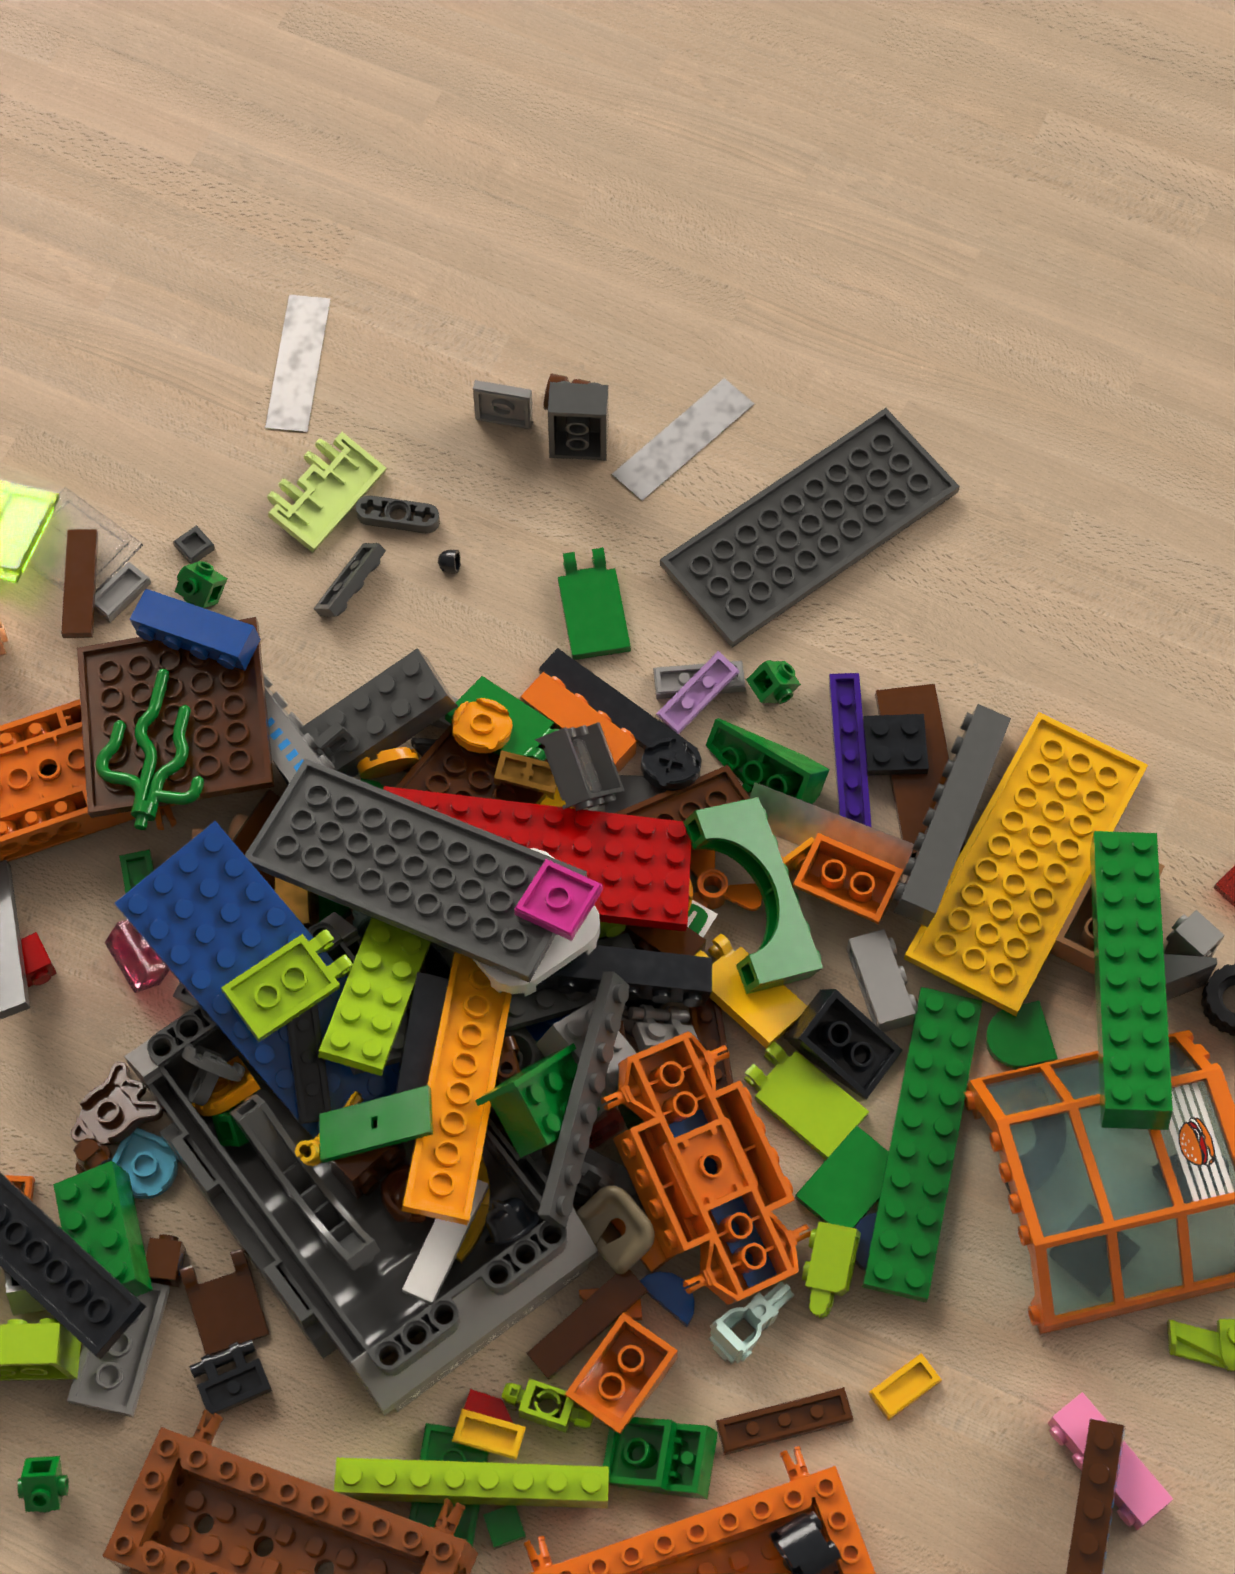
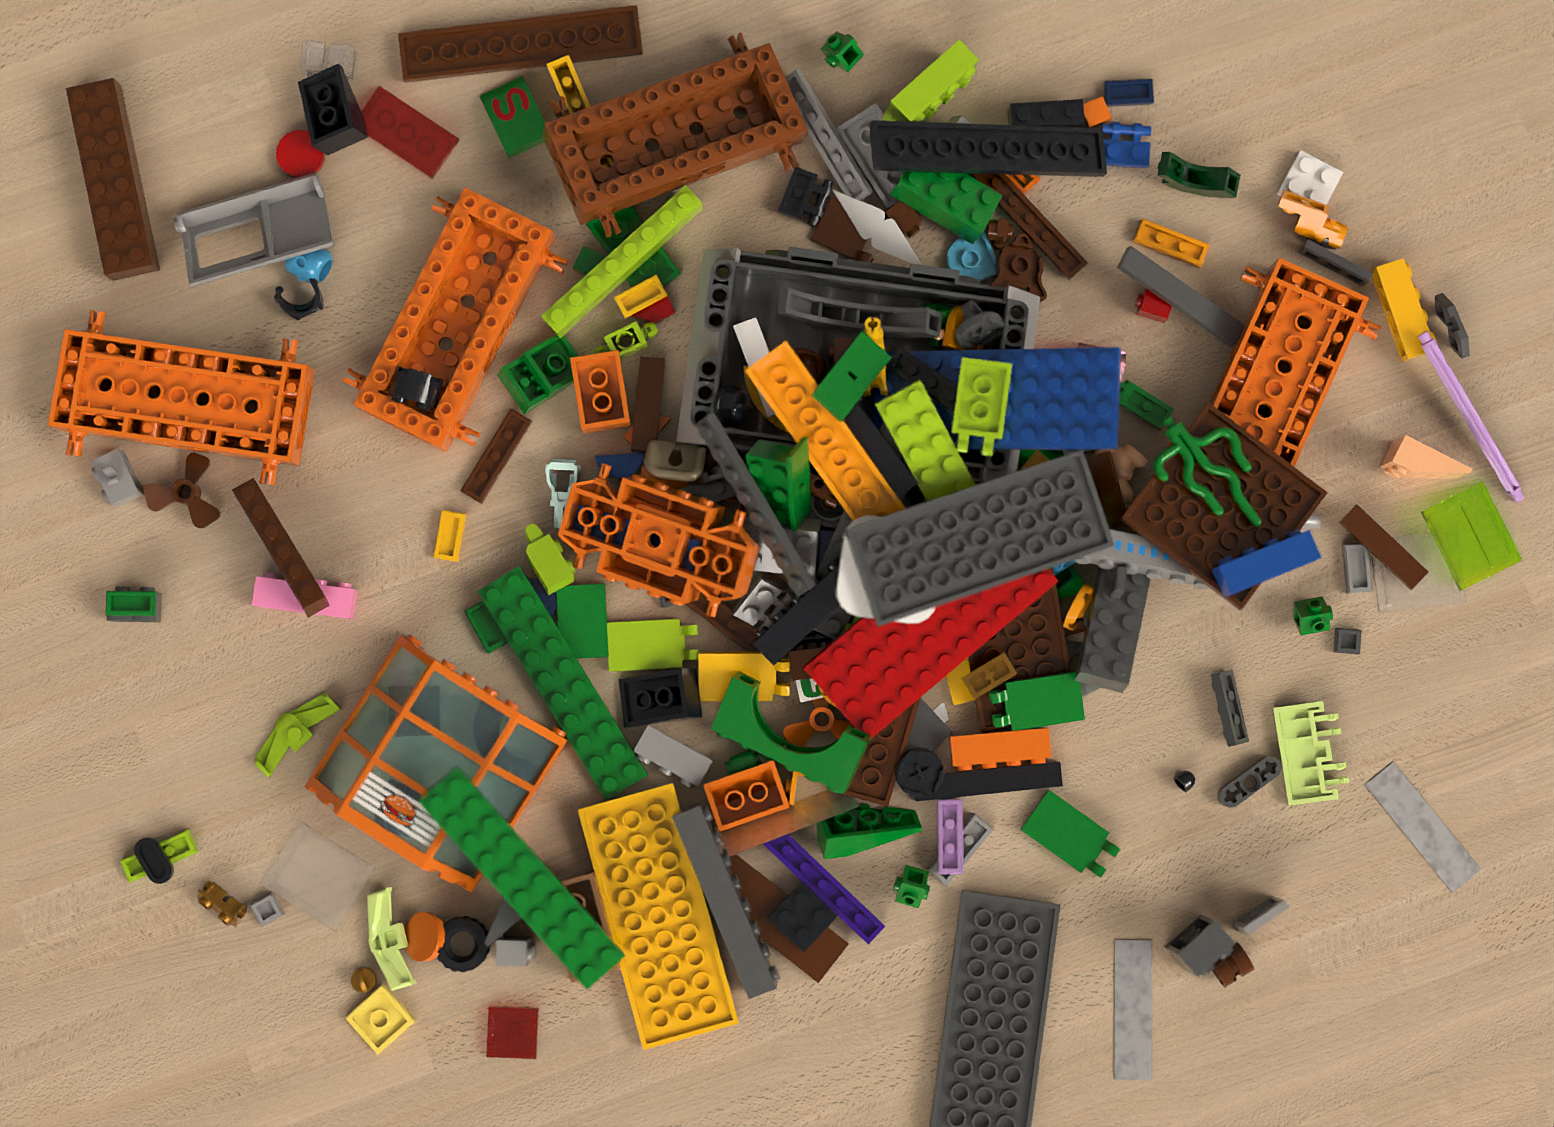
camera: 135 degrees right, 20 degrees up
(54, 1130) = (1034, 224): none -> reddish brown plate
(151, 1408) = (828, 139): none -> light grey plate
(198, 1284) = (871, 224): none -> white sticker
(481, 725) = (1048, 683): light orange tile -> none
(558, 899) = (875, 591): dark pink tile -> none
(582, 766) = (962, 710): dark grey window -> none
(823, 915) = (742, 762): none -> green brick
(950, 1264) = (486, 627): none -> green tile
(1020, 1039) = (563, 798): green tile -> none

